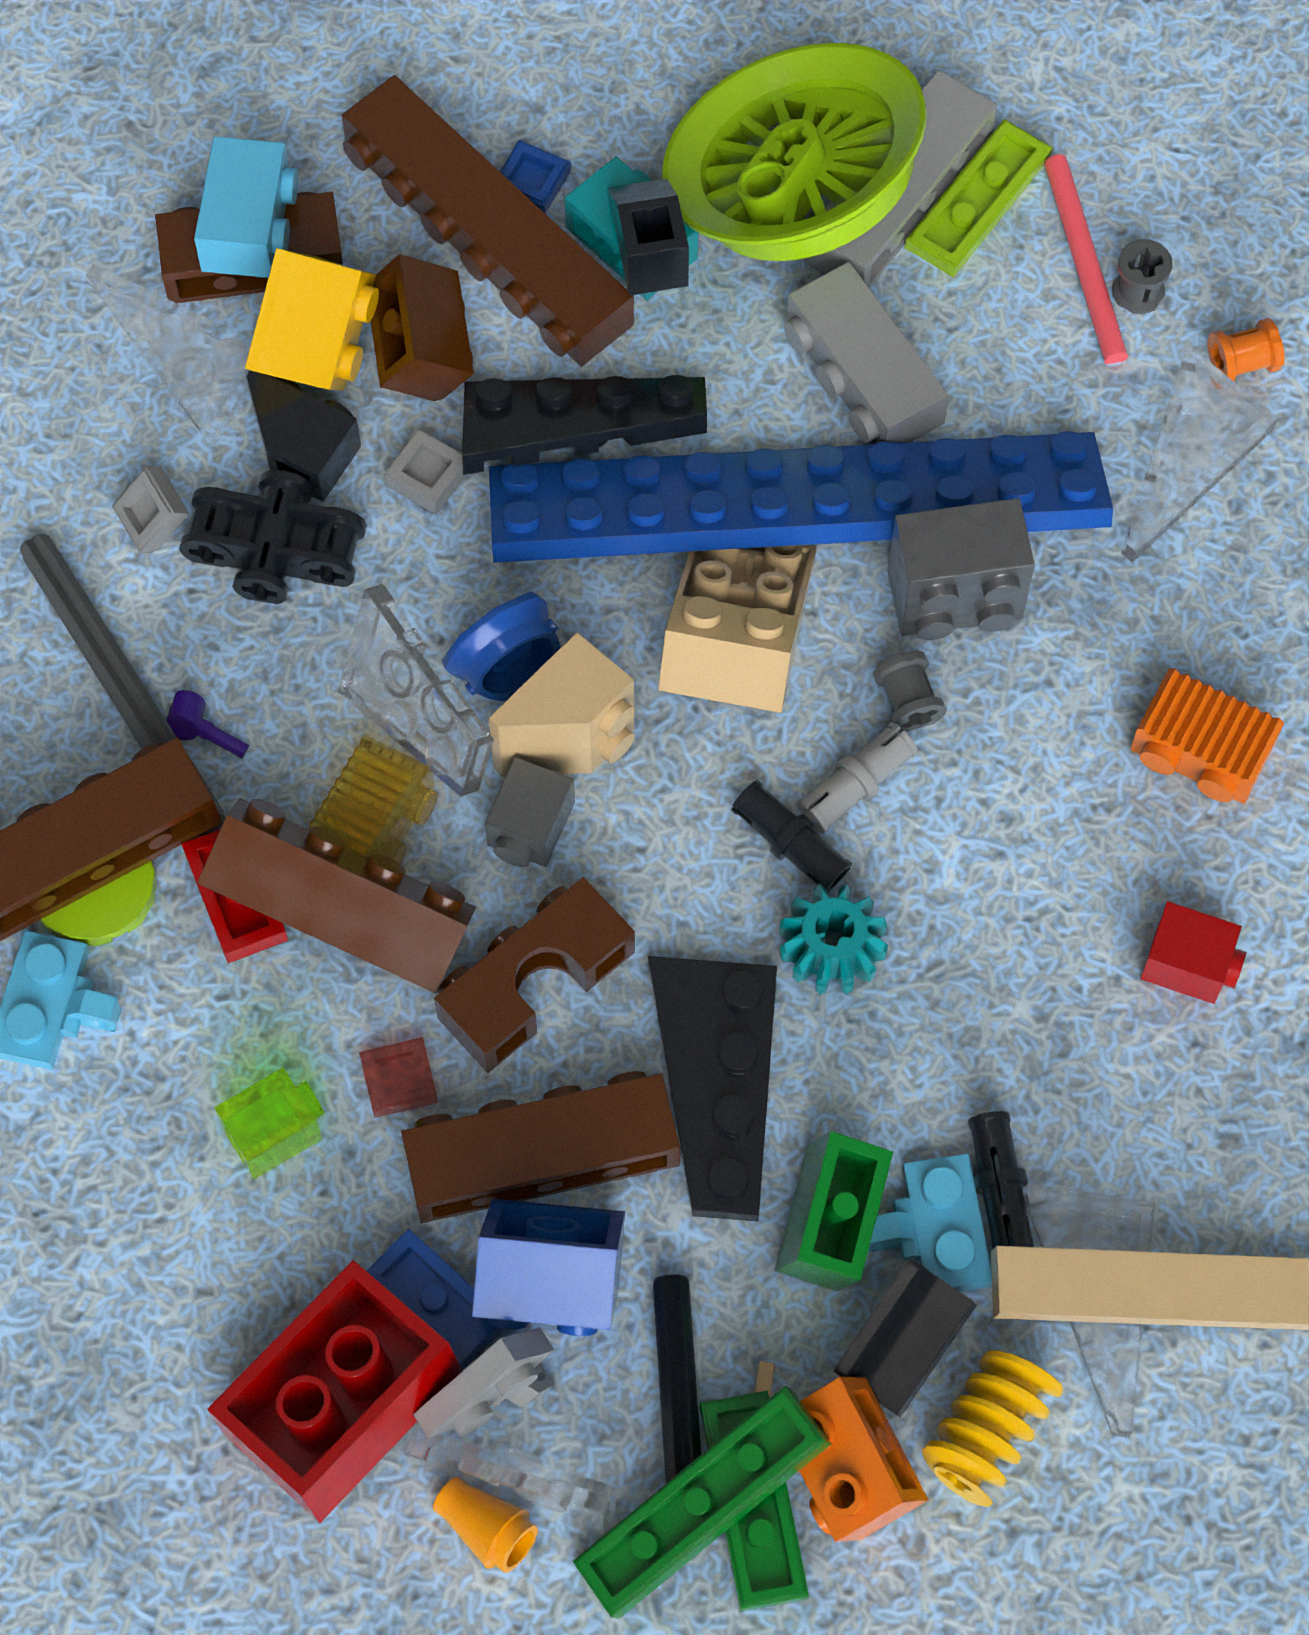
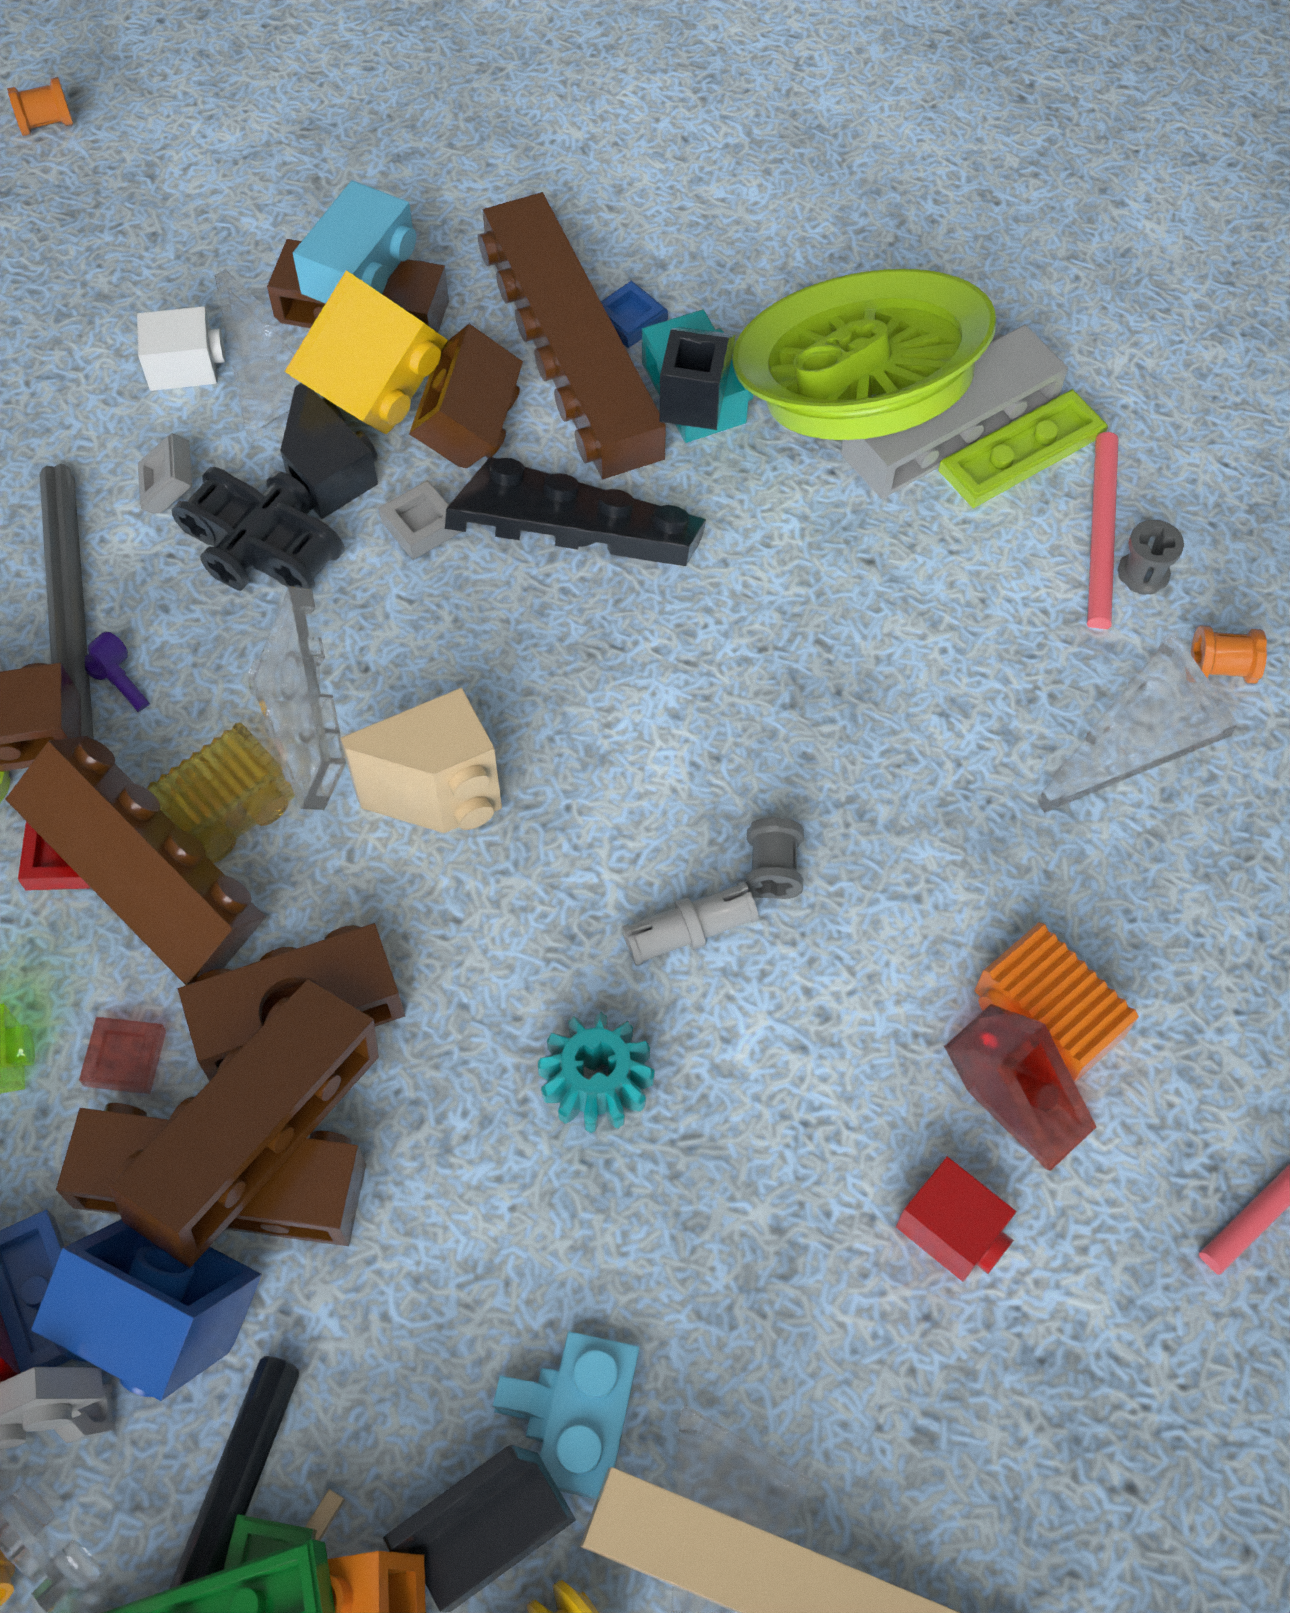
camera: 20 degrees right, 5 degrees down
(95, 369) = (179, 348): none -> white brick
(504, 647) = (401, 677): blue hat -> none
(529, 814) = (361, 848): dark grey brick -> none
(564, 1083) = (244, 1122): none -> reddish brown brick
(717, 1059) = (427, 1165): black wing -> none
(737, 625) = (637, 738): tan slope -> none
(786, 495) = (749, 648): blue plate -> none
(791, 836) = (601, 957): black pin -> none
(834, 1211) = (468, 1357): green brick -> none
(864, 358) = (858, 549): light grey brick -> none
(960, 568) = (867, 757): flat silver brick -> none
(992, 1138) = (659, 1396): black pin -> none
(1203, 815) = (1022, 1082): none -> clear red slope

